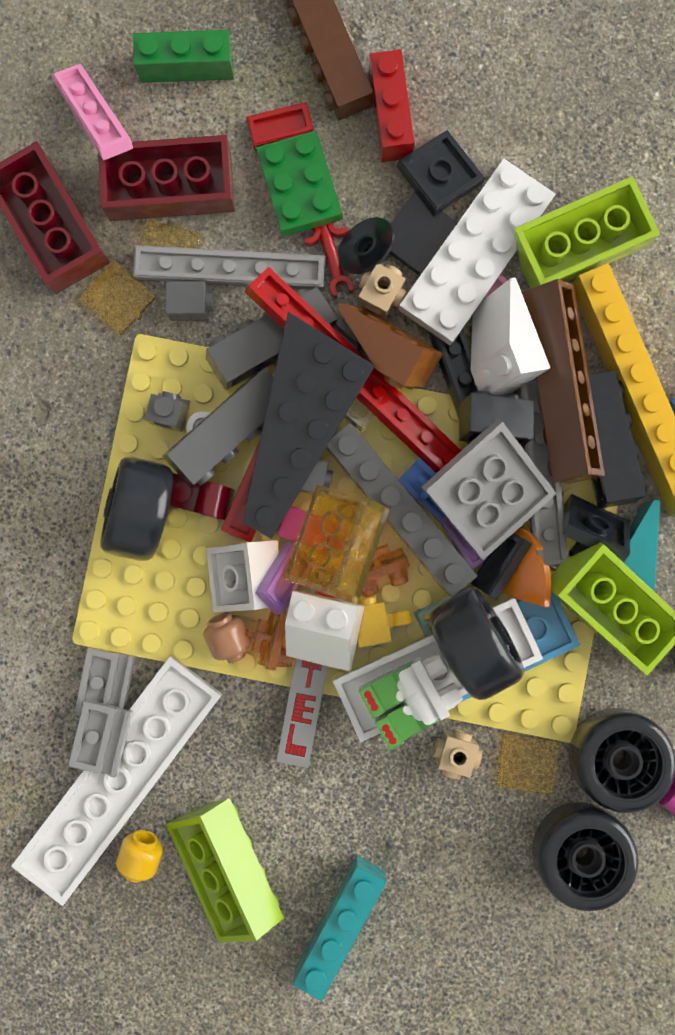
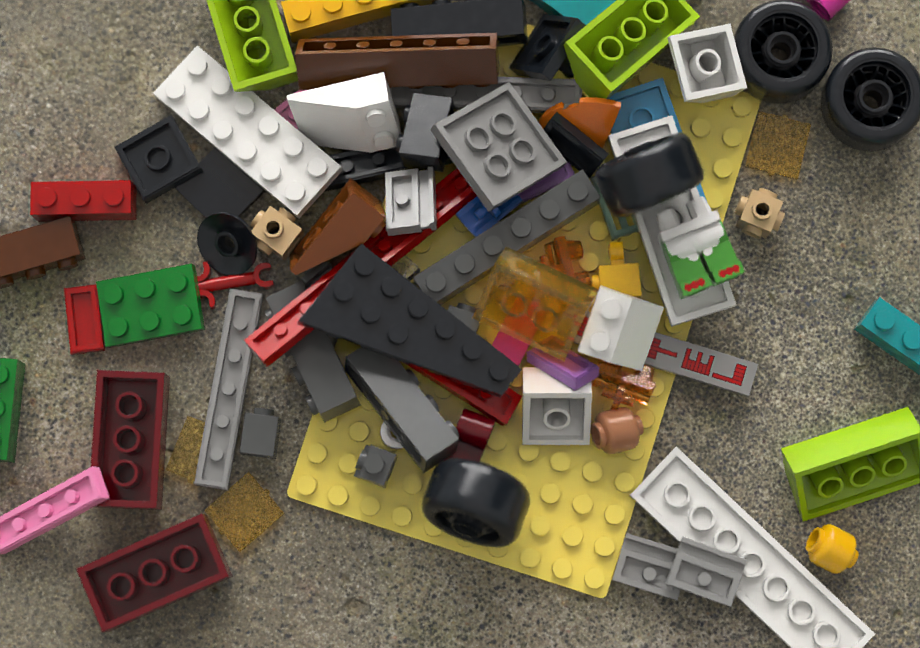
camera: 85 degrees left, 5 degrees down
(424, 411) = (410, 201): none -> light grey plate
(599, 689) = (707, 64): none -> white slope

